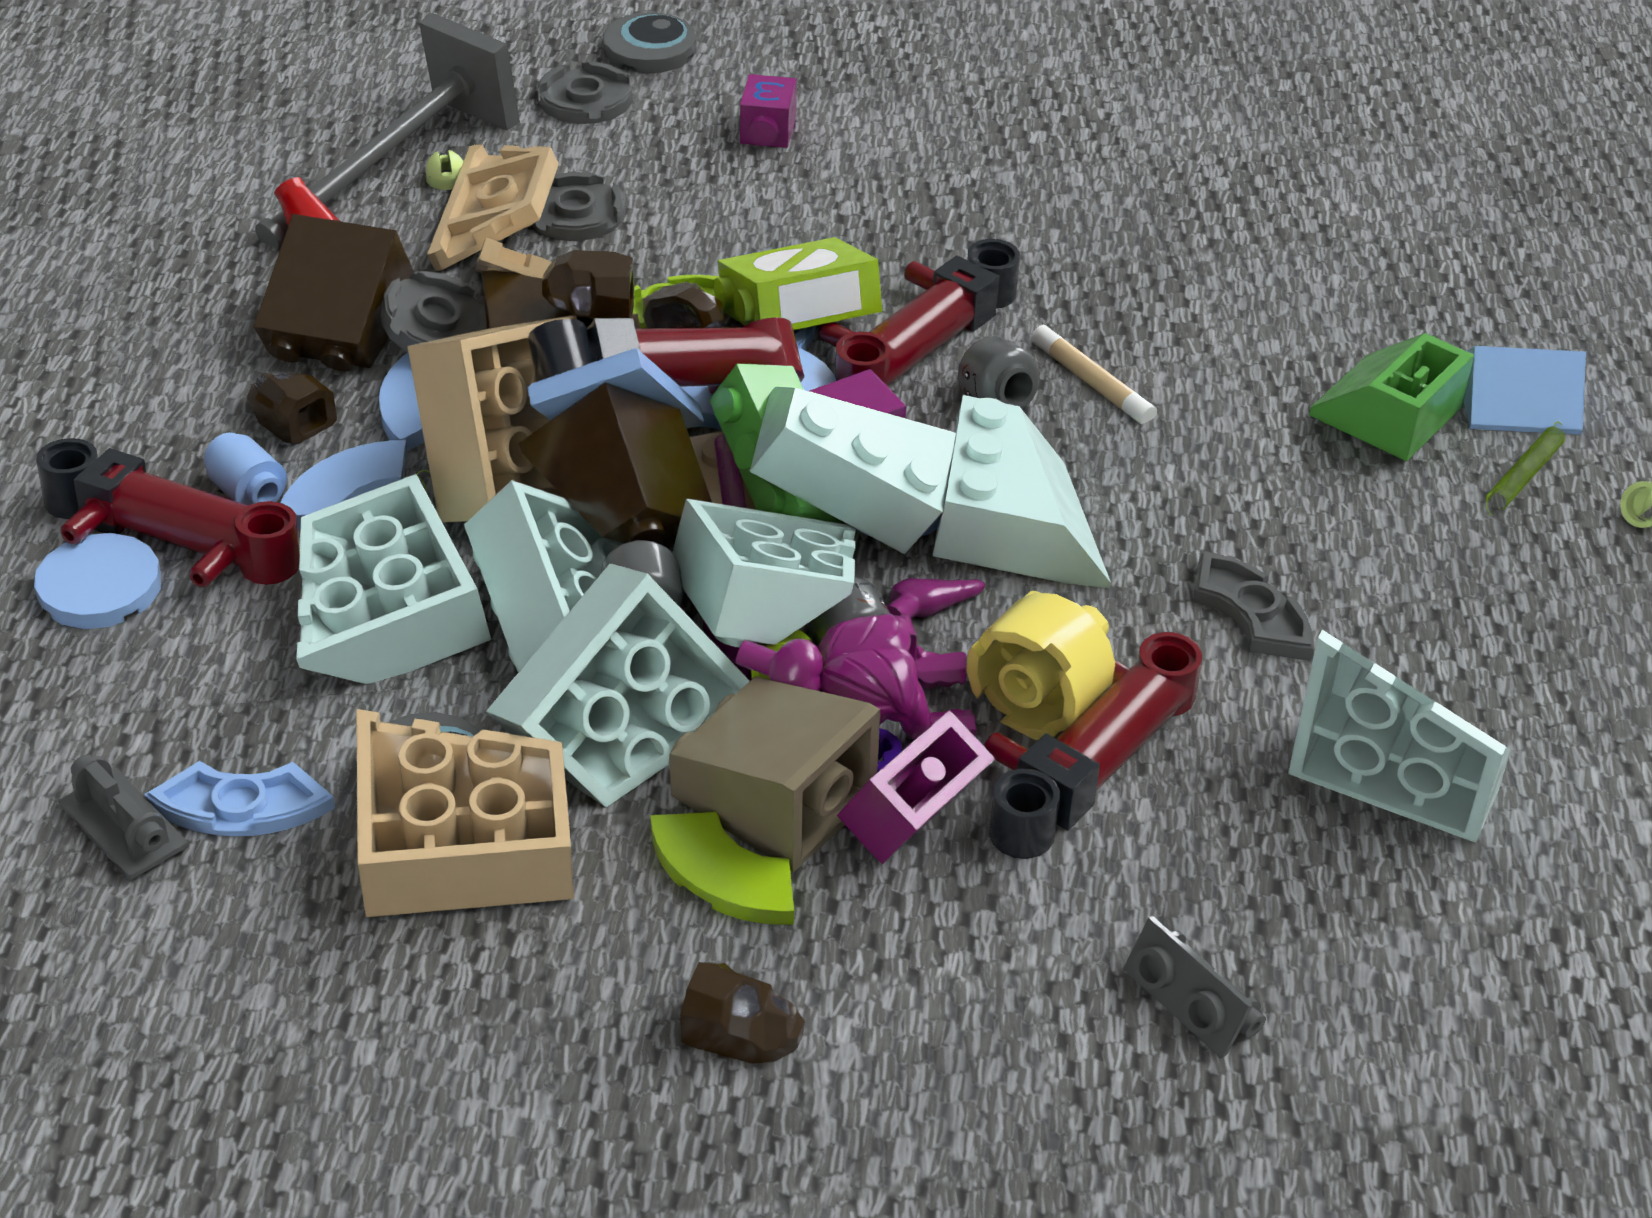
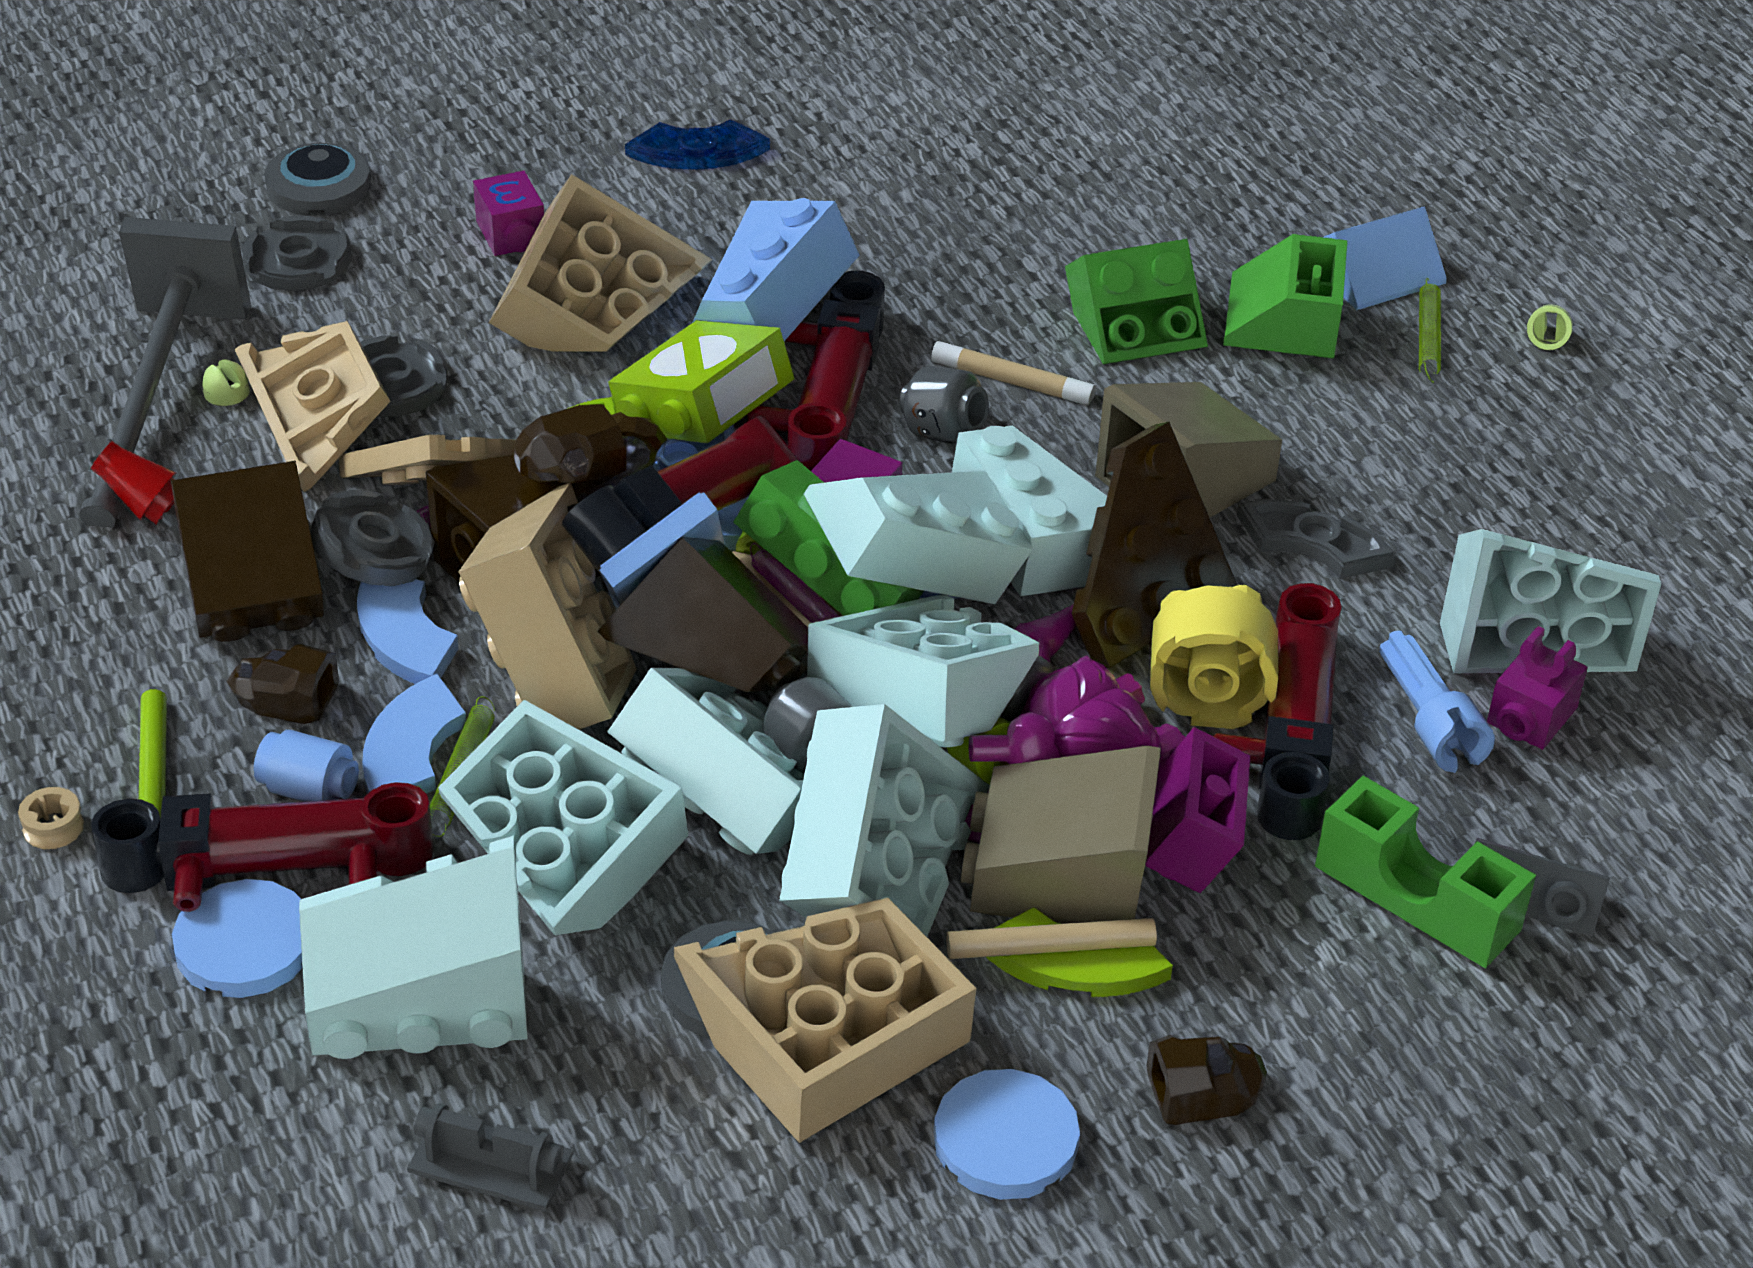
camera: 30 degrees left, 0 degrees up
(36, 428) = (56, 833): none -> tan bush
(161, 415) = (153, 747): none -> lime bar
(174, 641) = (417, 959): none -> light aqua wedge
(240, 803) = (586, 1091): light blue tile -> none
(536, 986) = (1006, 1133): none -> light blue tile
(702, 842) = (1051, 938): none -> tan bar
(785, 173) = (591, 274): none -> tan wedge
(928, 216) = (779, 264): none -> light blue wedge
(977, 109) = (697, 147): none -> clear blue tile
(1060, 539) = (1145, 546): none -> dark brown plate
(1095, 961) = (1376, 851): none -> bright green arch
(1177, 484) = (1221, 444): none -> dark tan slope
(1231, 803) = (1444, 716): none -> light blue piece
(1249, 349) = (1138, 301): none -> bright green slope
(1338, 816) = (1537, 691): none -> magenta brick

